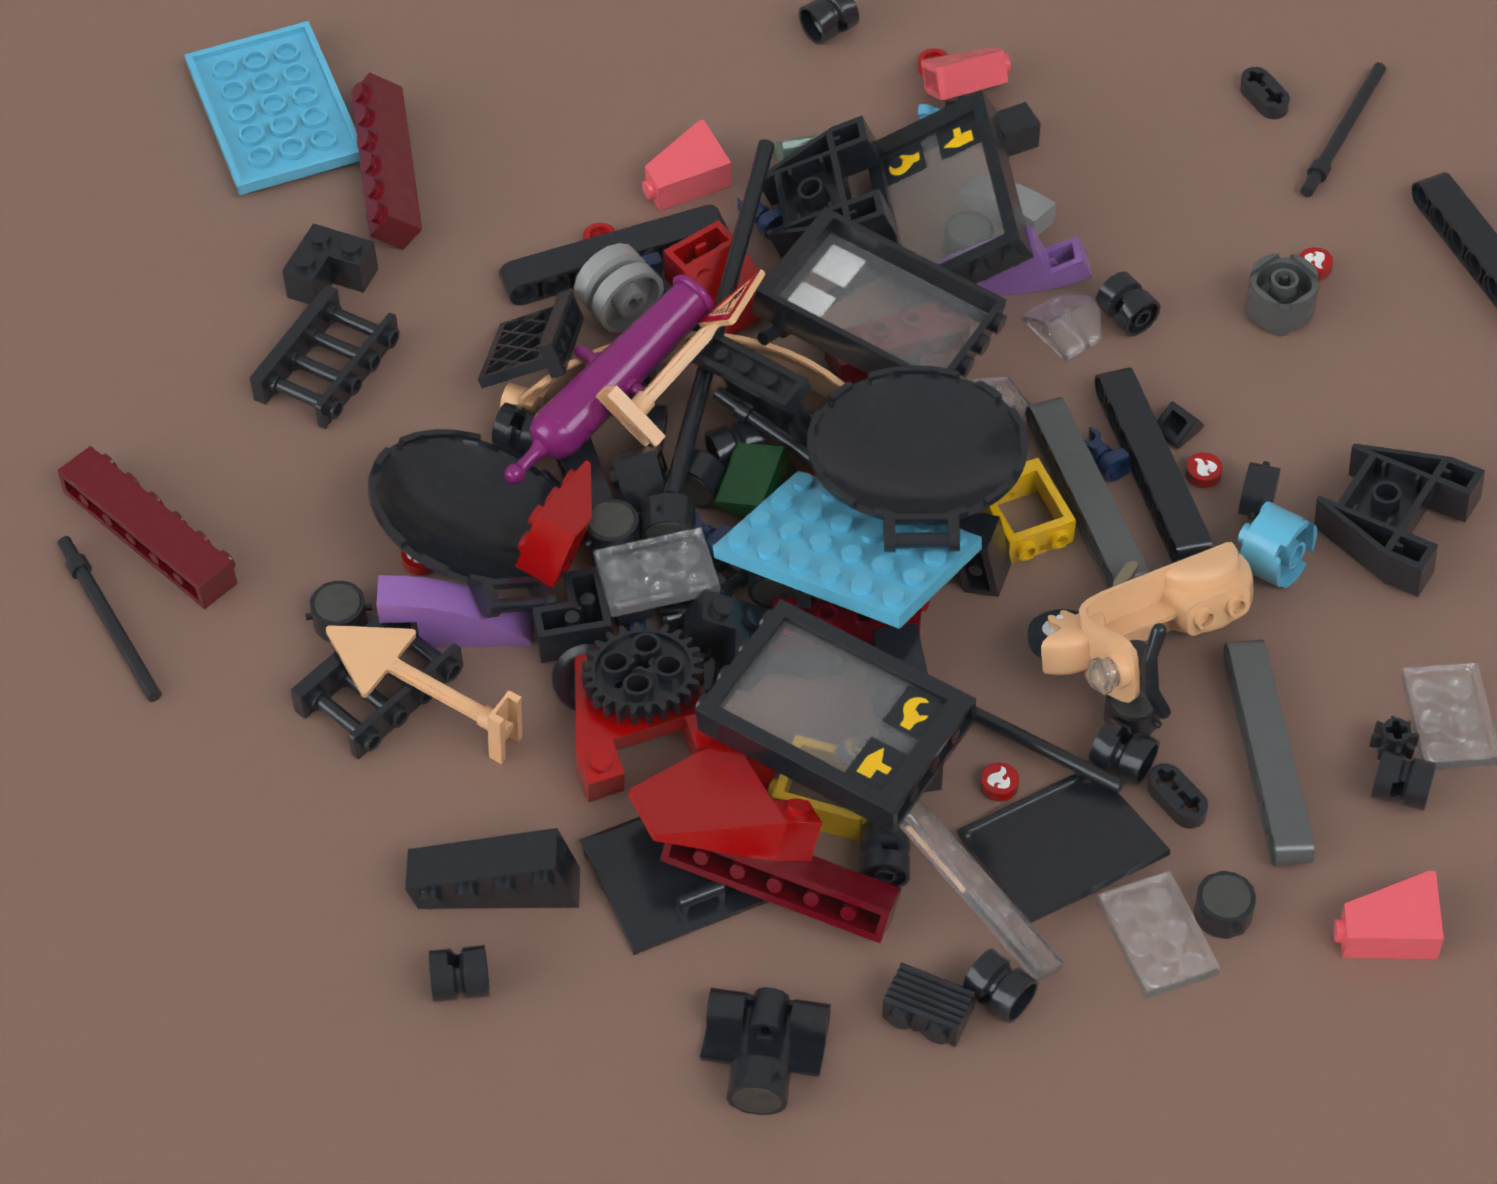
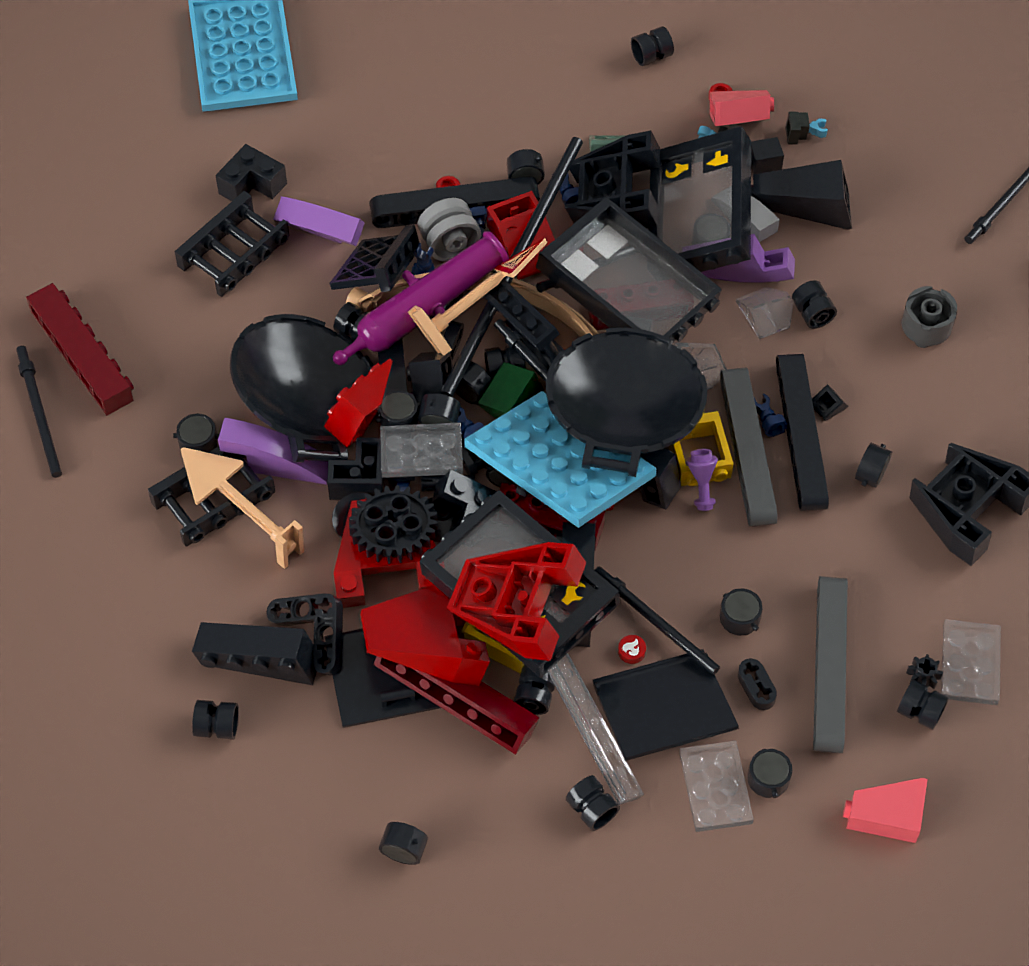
camera: 10 degrees right, 5 degrees up
(386, 161) = (309, 104): dark red brick -> none
(439, 305) = (319, 220): none -> medium lavender slope
(574, 817) = (321, 619): none -> black beam
(594, 335) = (424, 262): none -> dark blue piece
(687, 169) = (527, 134): coral slope -> none
(698, 189) = (526, 164): none -> black piece
(766, 1026) = (420, 802): black panel -> none
(831, 726) = (509, 591): none -> red wedge
(928, 1005) = (538, 807): black brick -> none
(1037, 529) = (702, 466): none -> medium lavender piece
(1048, 85) = (798, 127): none -> pearl dark grey piece
(1083, 165) = (807, 192): none -> black slope
(1111, 627) = (725, 557): light nougat piece -> none
(1126, 751) = (728, 646): black wheel -> none
(1204, 470) = (839, 440): red tile -> none
(1268, 91) = (952, 160): black beam -> none
(1277, 544) = (874, 509): medium azure brick -> none
(1320, 260) = (963, 295): red tile -> none

